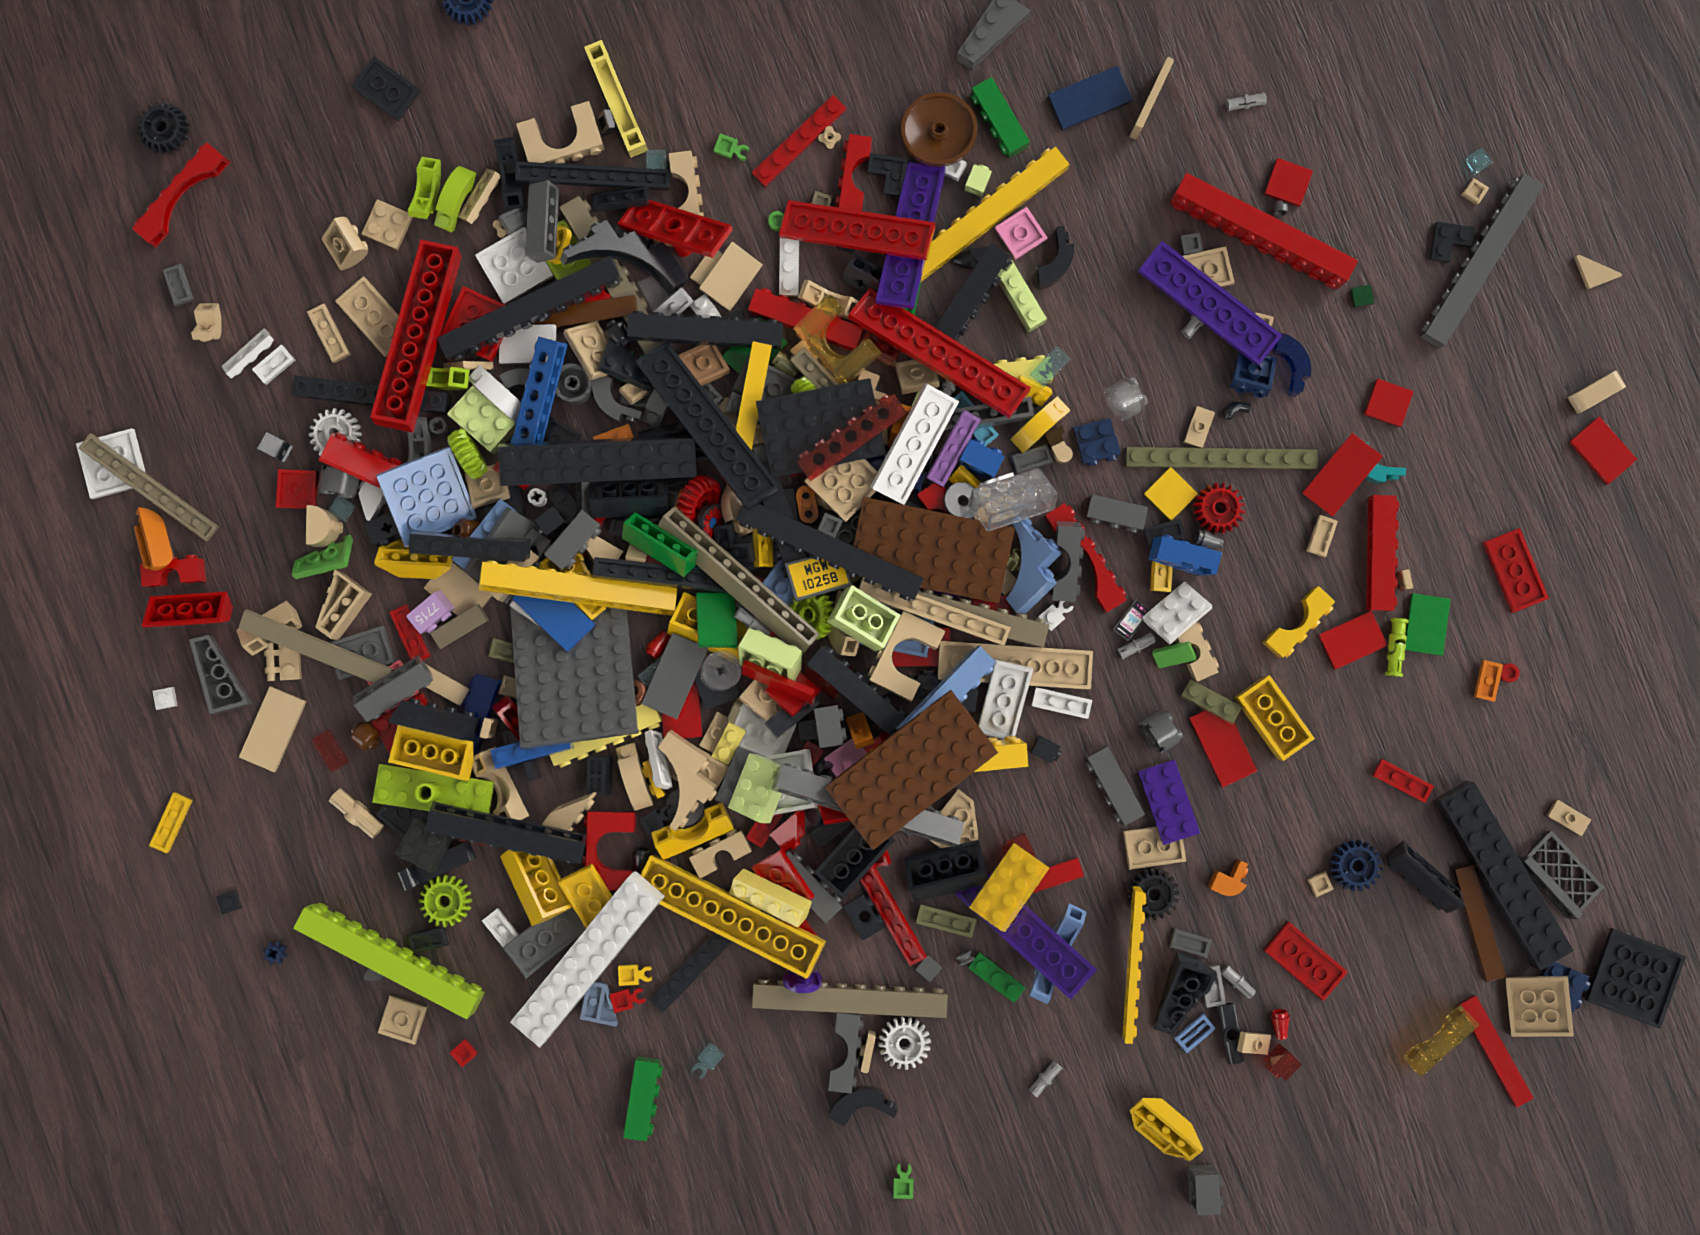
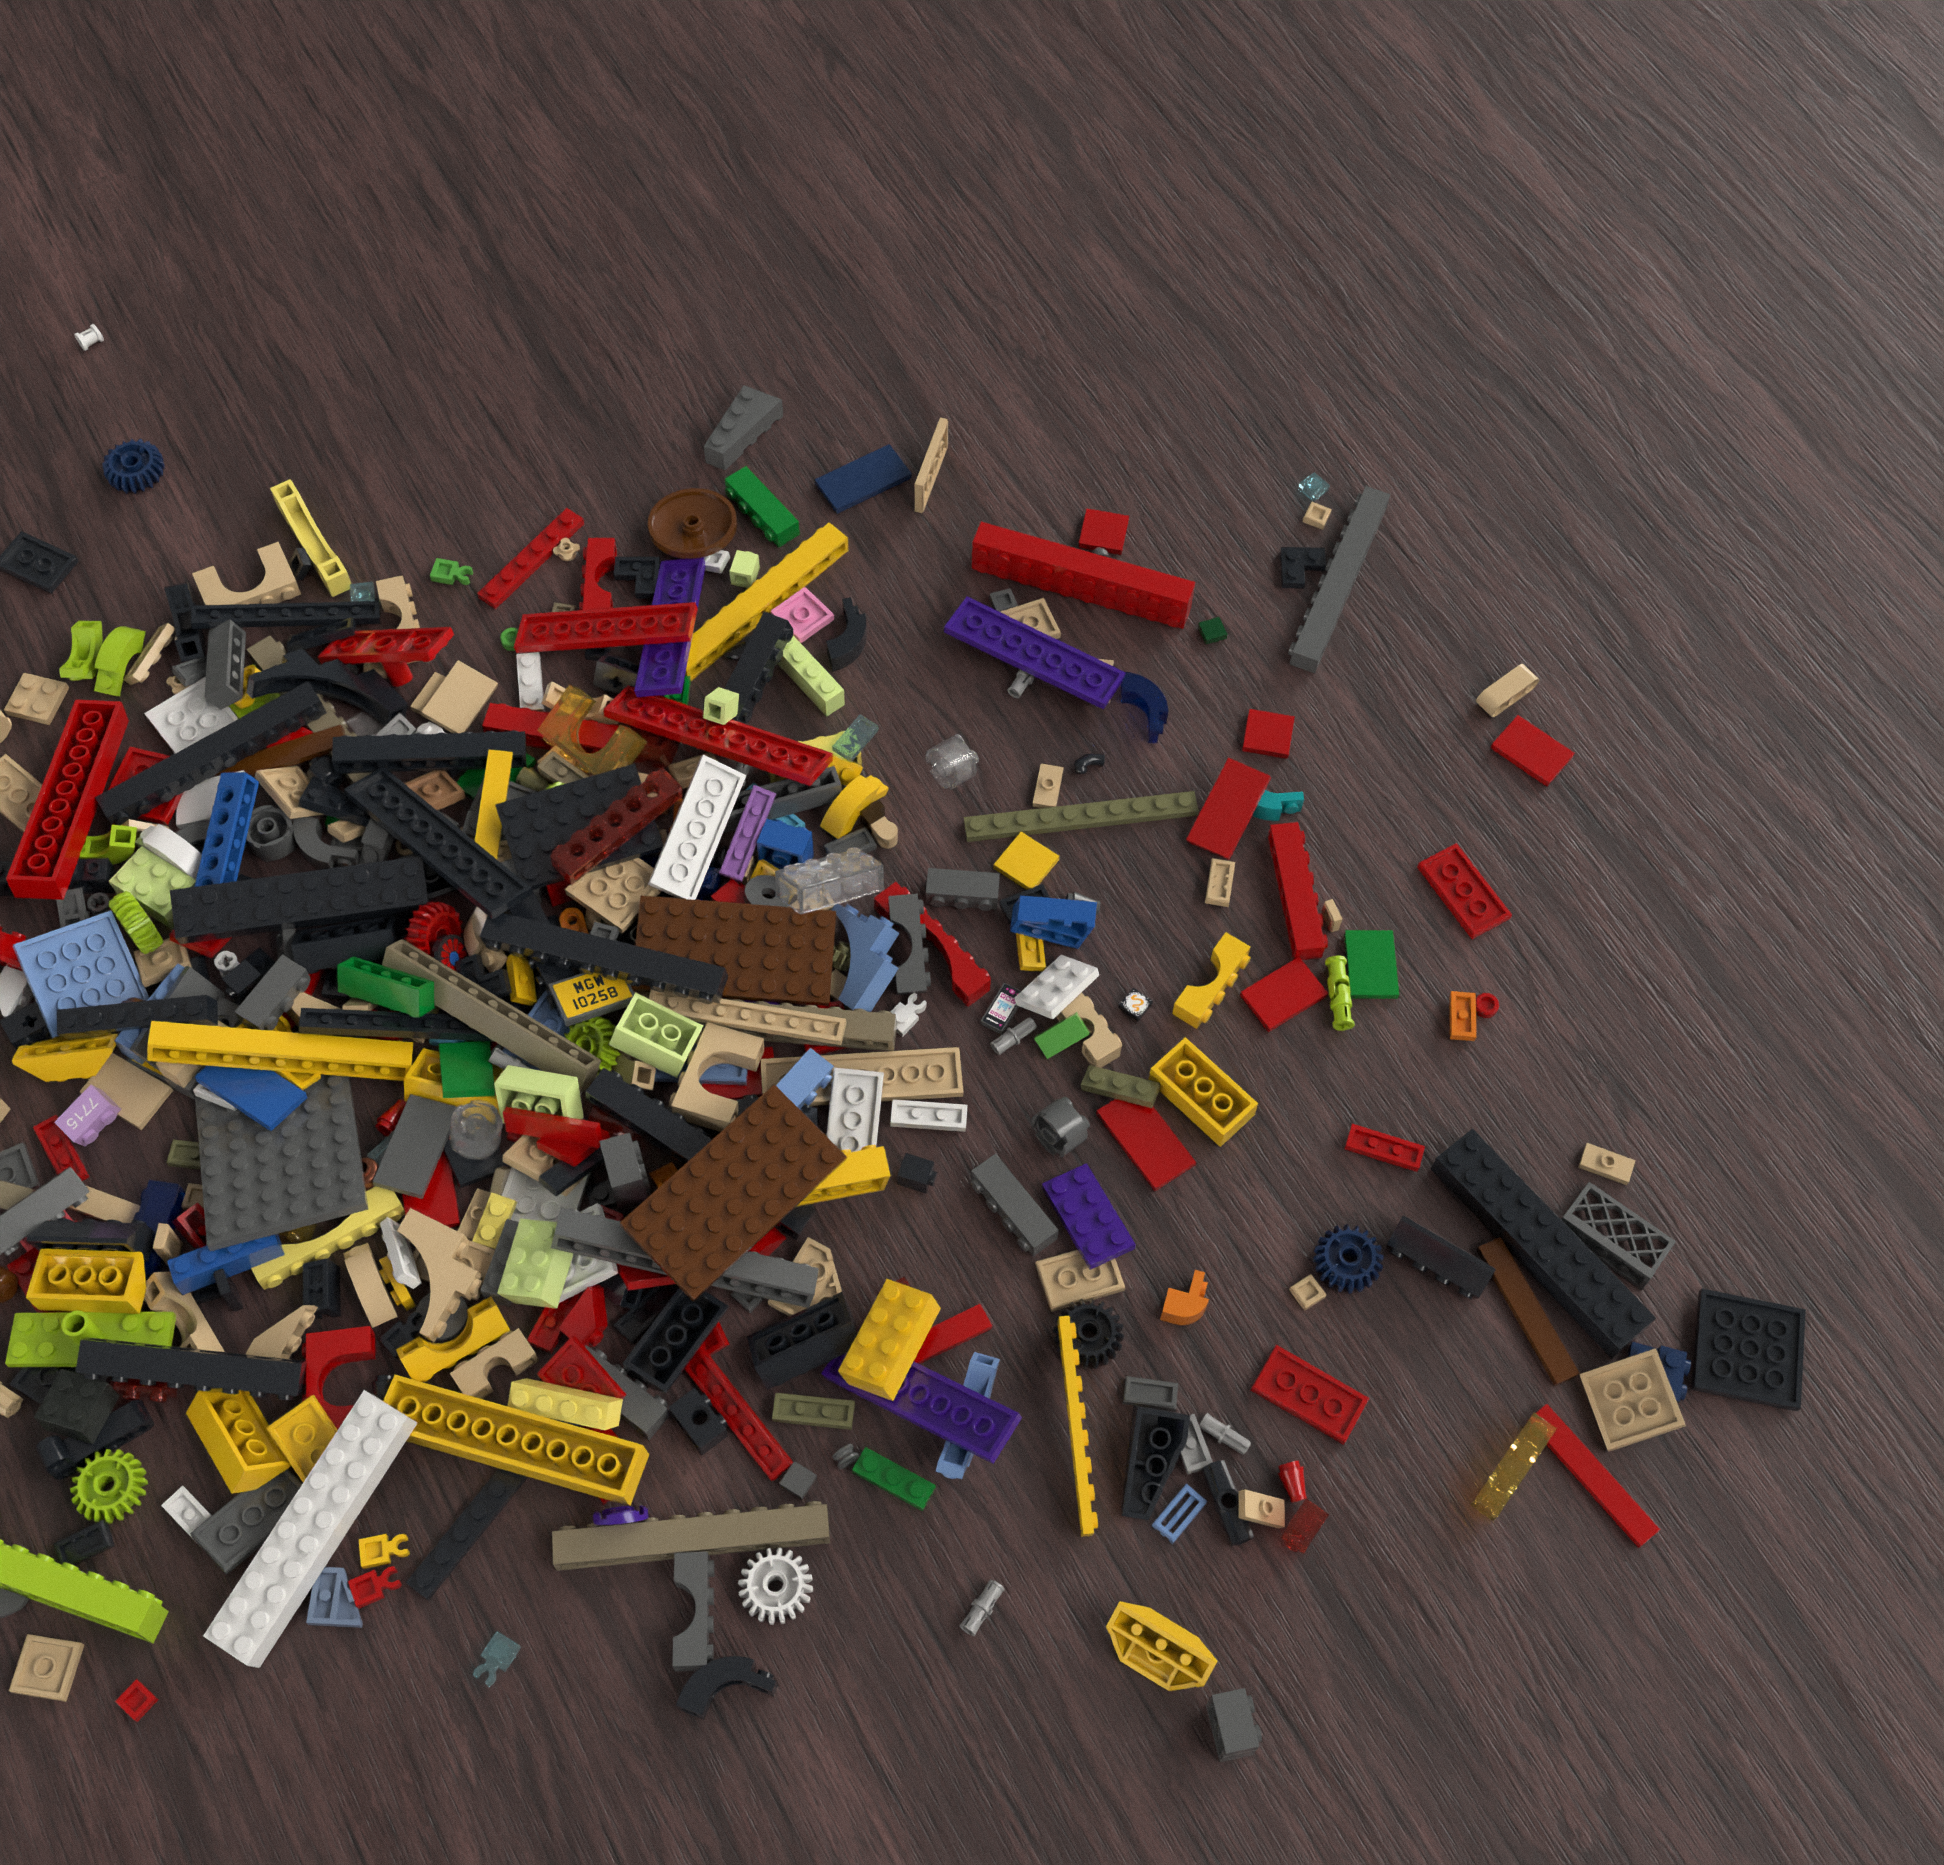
camera: 10 degrees left, 25 degrees down
(459, 626) = (127, 1130): dark tan tile -> none
(642, 1097) = (403, 1726): green brick -> none
(866, 1051) = (723, 1606): tan plate -> none
(903, 1185) = (799, 1795): bright green plate -> none
(945, 327) = (721, 706): none -> yellowish green brick
(1096, 442) = (926, 818): dark blue plate -> none
(1207, 510) = (1092, 854): red gear -> none
(1235, 632) = (1135, 1004): none -> tile
(1246, 101) = (1053, 458): light grey pin -> none
(1253, 378) = (1101, 724): dark blue plate -> none
(1594, 273) = (1472, 576): tan tile -> none

